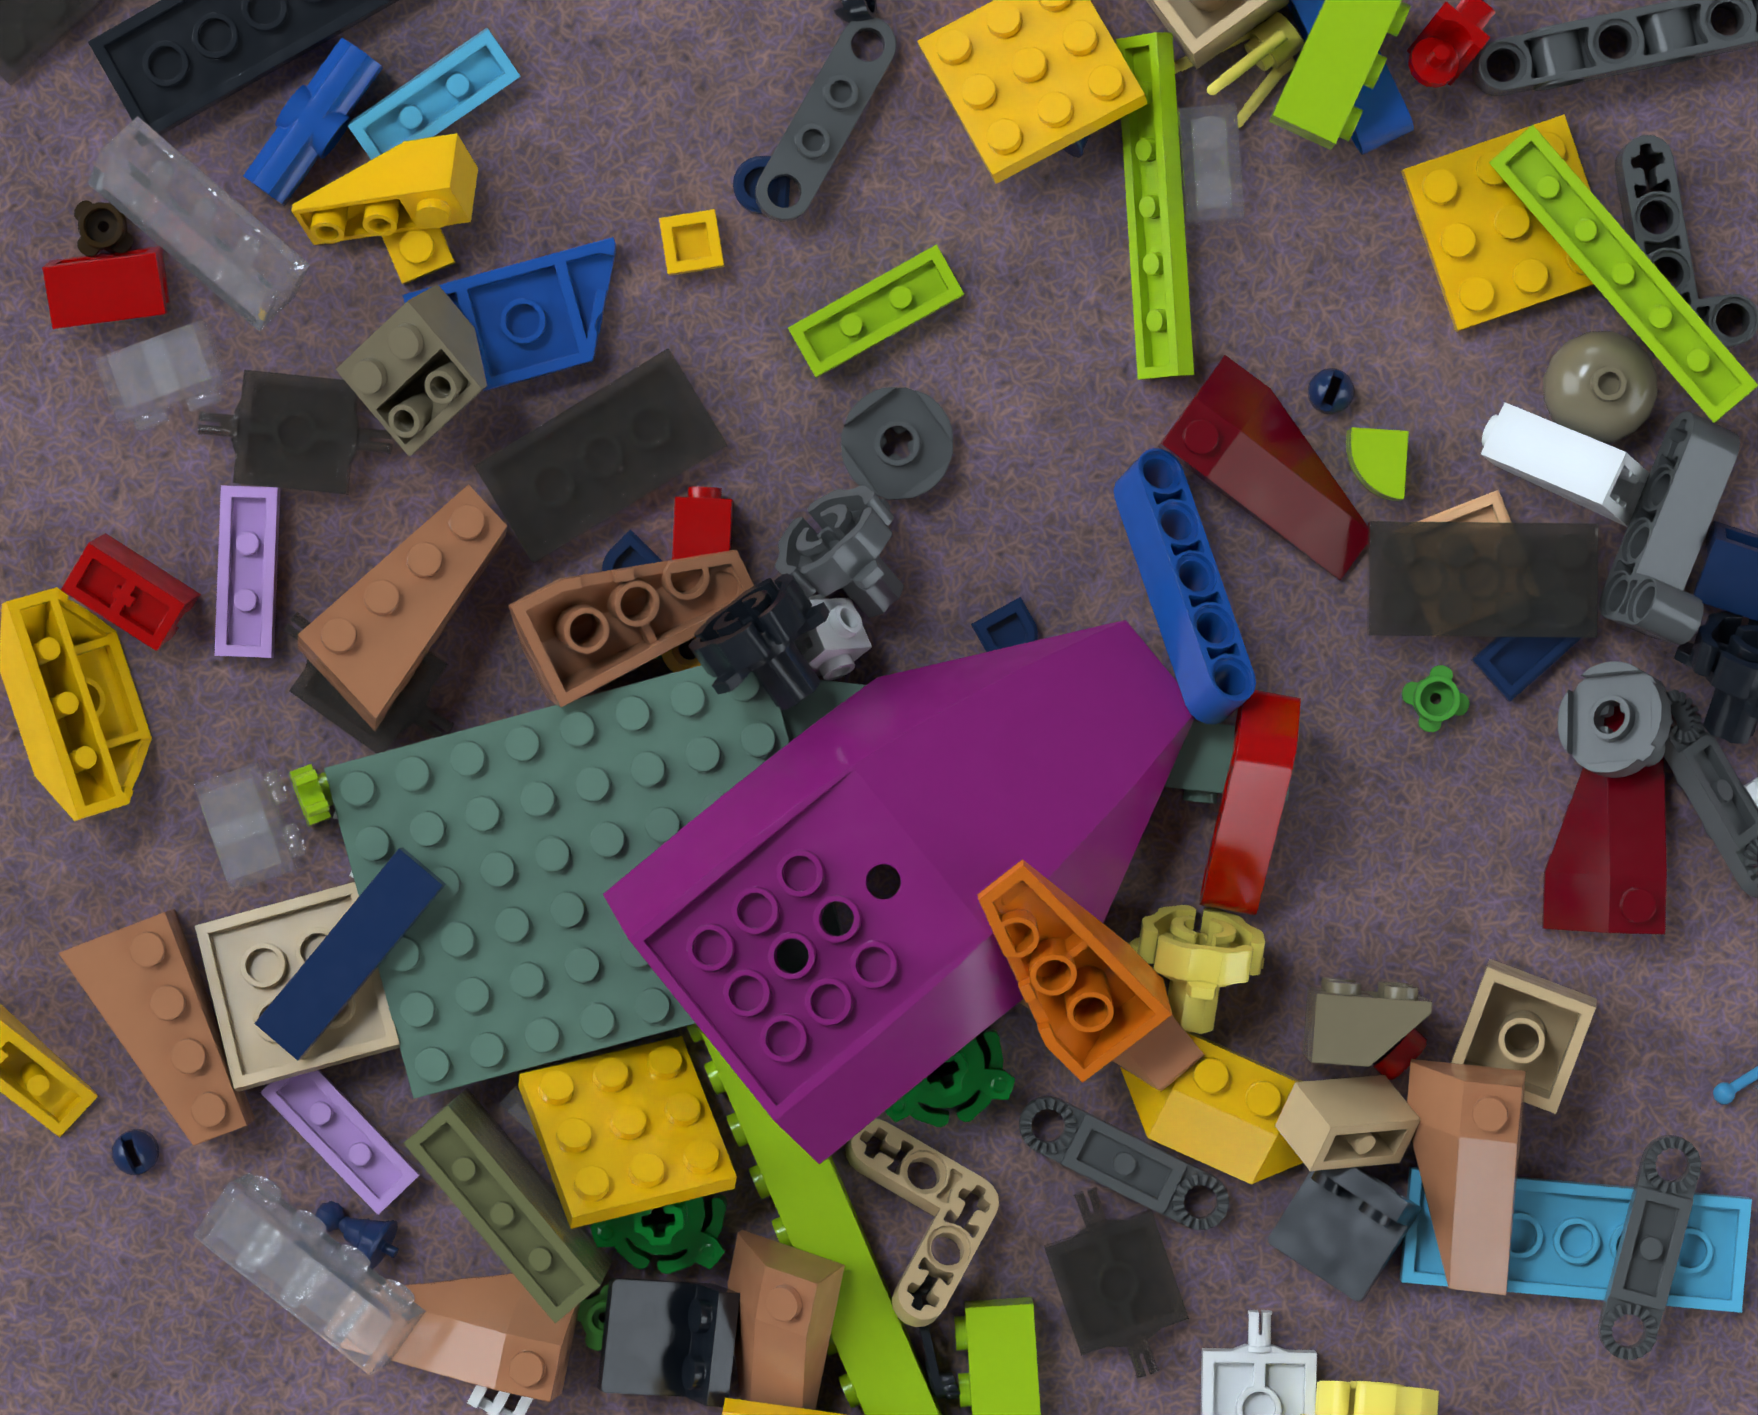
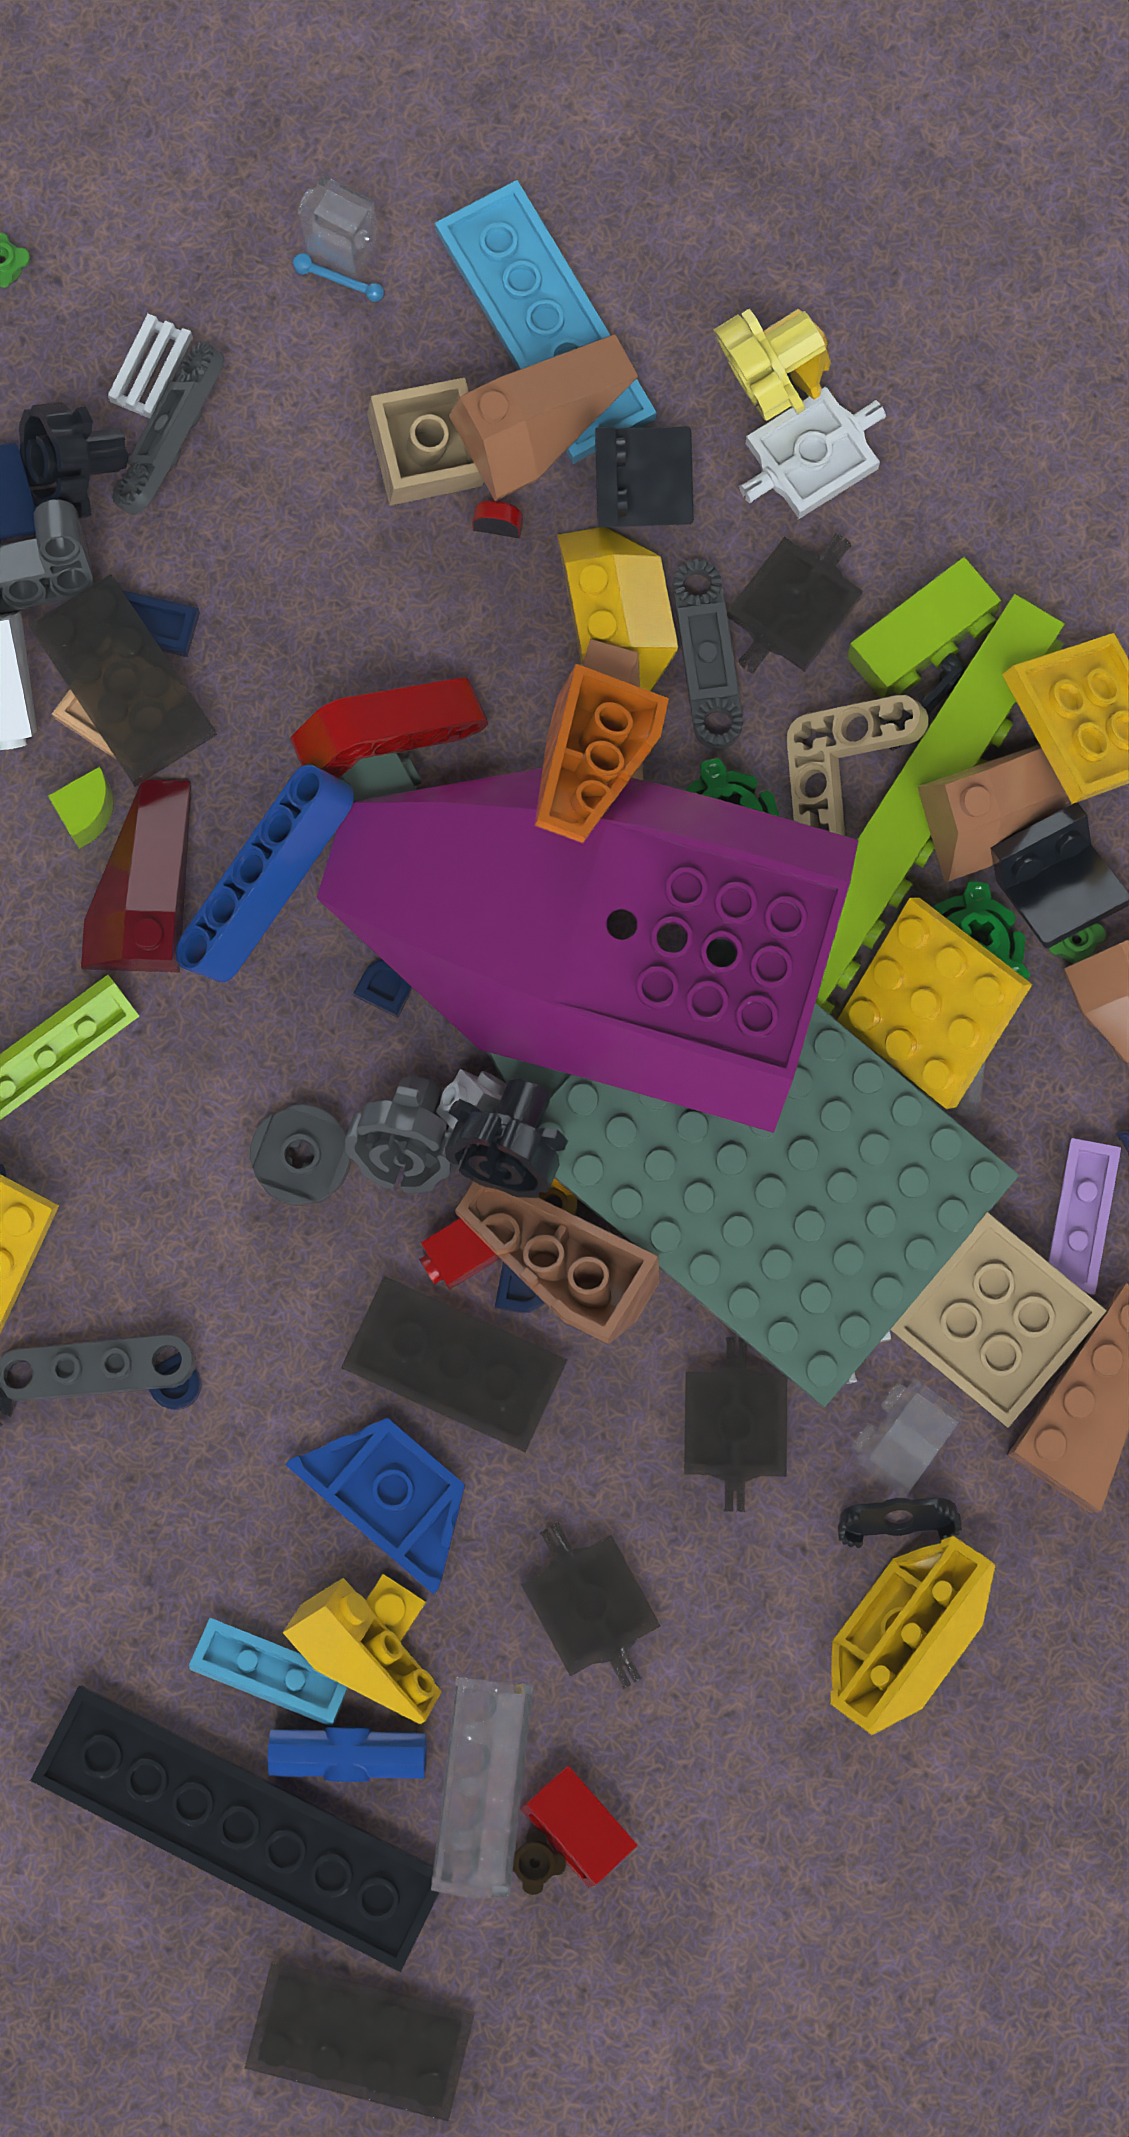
camera: 120 degrees left, 10 degrees down
(129, 591) = (795, 1648): red hinge -> none
(164, 375) = (616, 1736): clear brick -> none
(198, 743) = (927, 1514): none -> black piece
(247, 571) = (719, 1570): lavender plate -> none
(312, 793) = (850, 1406): lime plate -> none
(350, 953) = (947, 1290): dark blue tile -> none
(400, 608) = (678, 1430): nougat wedge -> none
(418, 368) = (480, 1538): dark tan slope -> none
(509, 1205) = (1047, 1041): olive panel -> none
(691, 242) = (251, 1405): yellow plate -> none
(876, 311) = (213, 1235): lime plate -> none
(1199, 961) = (521, 690): light yellow piece -> none
(1320, 386) = (59, 883): dark blue hinge -> none
(1347, 1122) = (570, 511): tan brick -> none
(1356, 1024) = (496, 552): dark tan slope -> none
(1431, 714) = (225, 647): bright green plate -> none
(1610, 854) = (249, 473): dark red wedge -> none
(1640, 737) = (155, 550): plate -> none
(1649, 1247) = (514, 262): dark grey plate -> none

